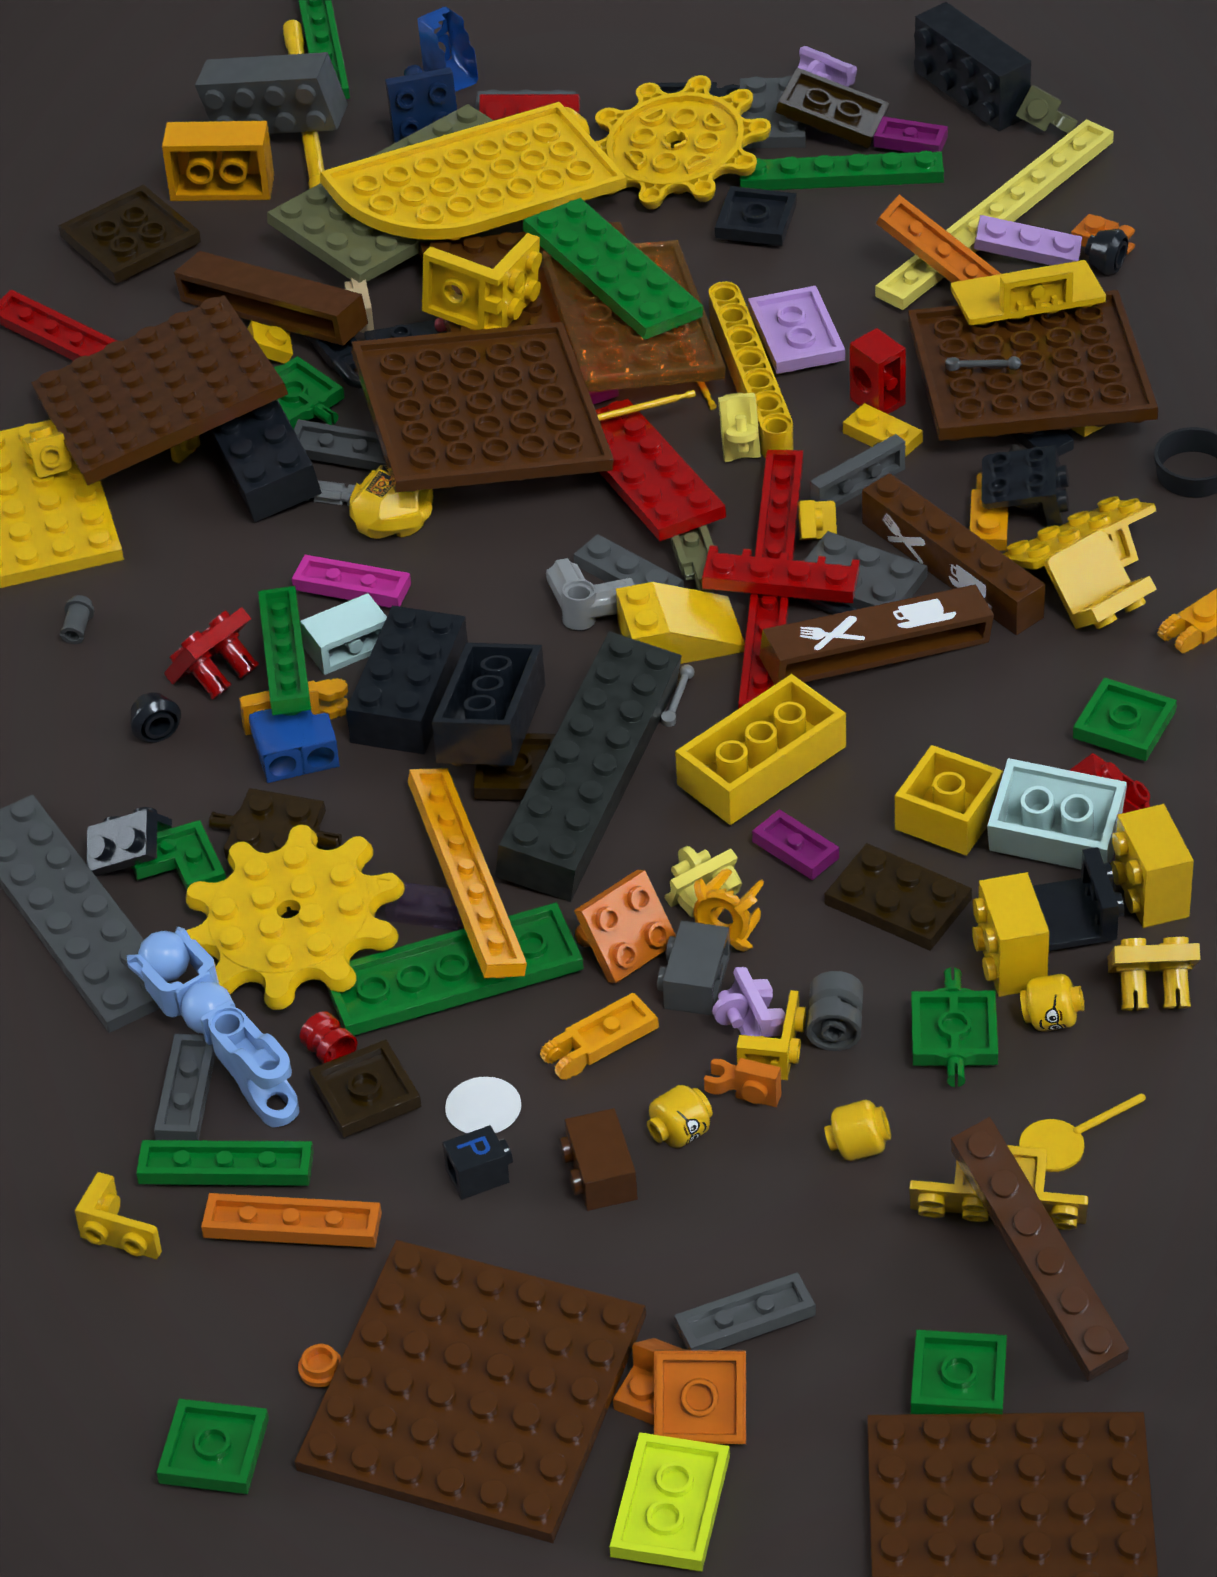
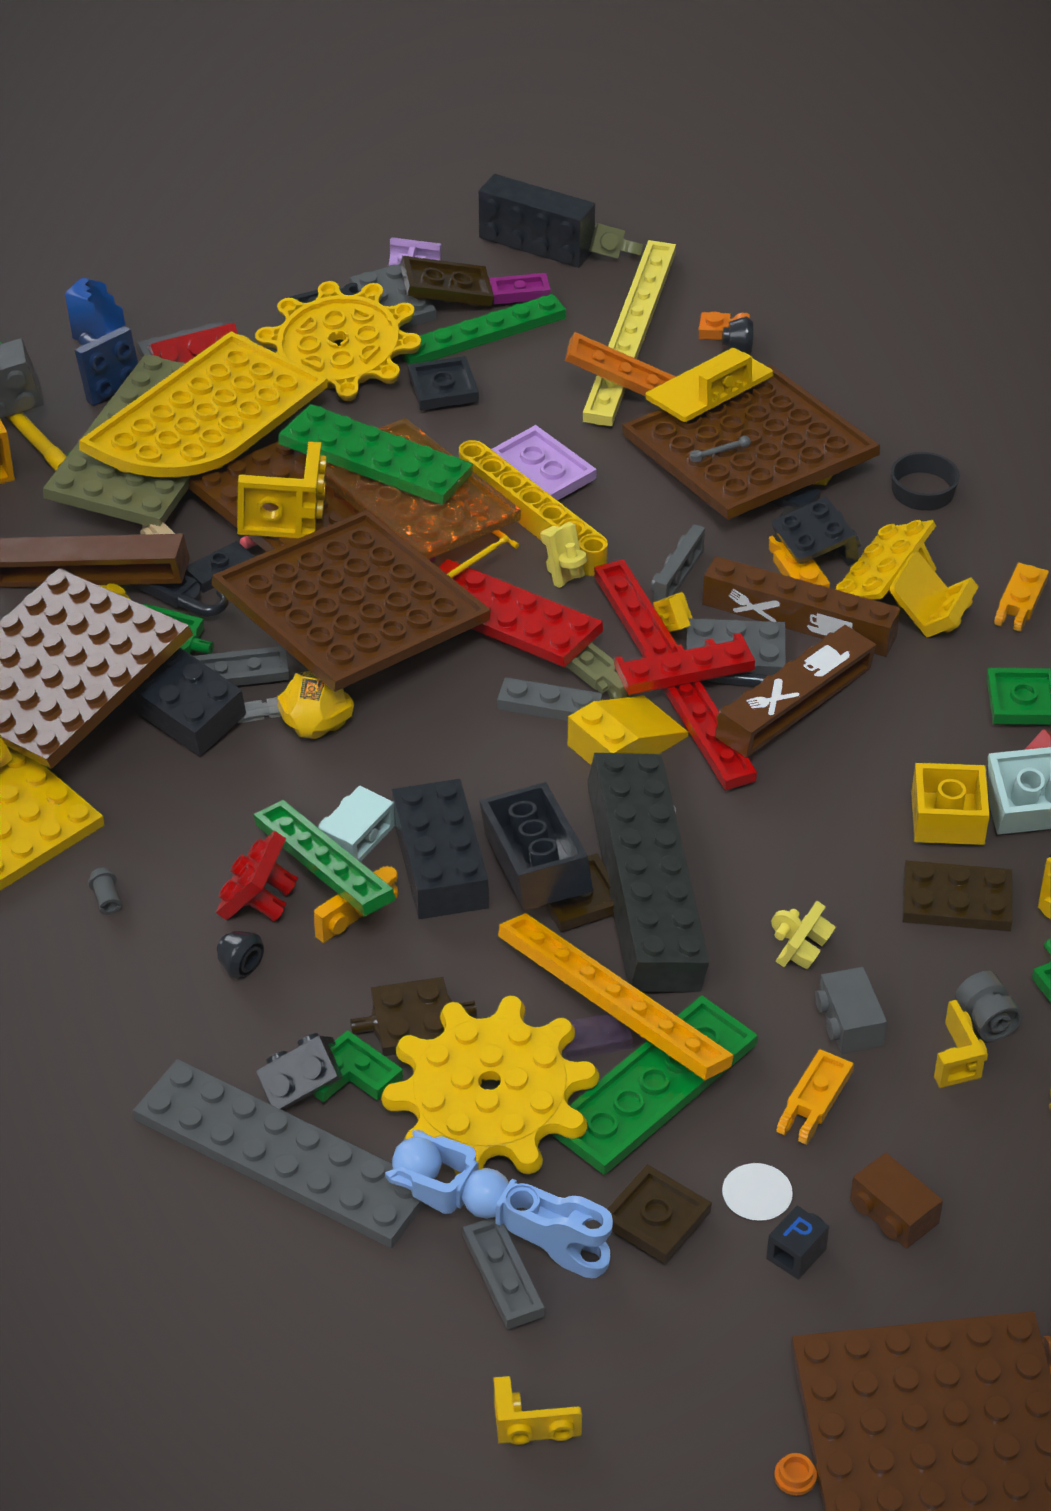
camera: 30 degrees left, 0 degrees up
(225, 1162) = (584, 1325): green plate -> none
(291, 1220) = (678, 1354): orange plate -> none
(293, 743) = (379, 937): blue piece -> none
(323, 1035) = (593, 1181): red wheel -> none
(351, 580) = (325, 780): dark pink plate -> none
(579, 598) = (531, 735): light grey piece -> none
(624, 926) = (776, 996): orange plate -> none
(679, 1116) = (930, 1138): yellow head -> none
(712, 902) = (860, 946): light orange piece -> none
(747, 1005) = (918, 1029): lavender hips -> none
(751, 1079) = (964, 1089): orange plate -> none
(760, 749) = (774, 811): yellow brick -> none
(795, 844) = (851, 880): magenta plate -> none
(875, 426) = (663, 525): yellow plate -> none
(878, 371) = (642, 479): red brick -> none
(1026, 241) = (674, 346): lavender plate -> none

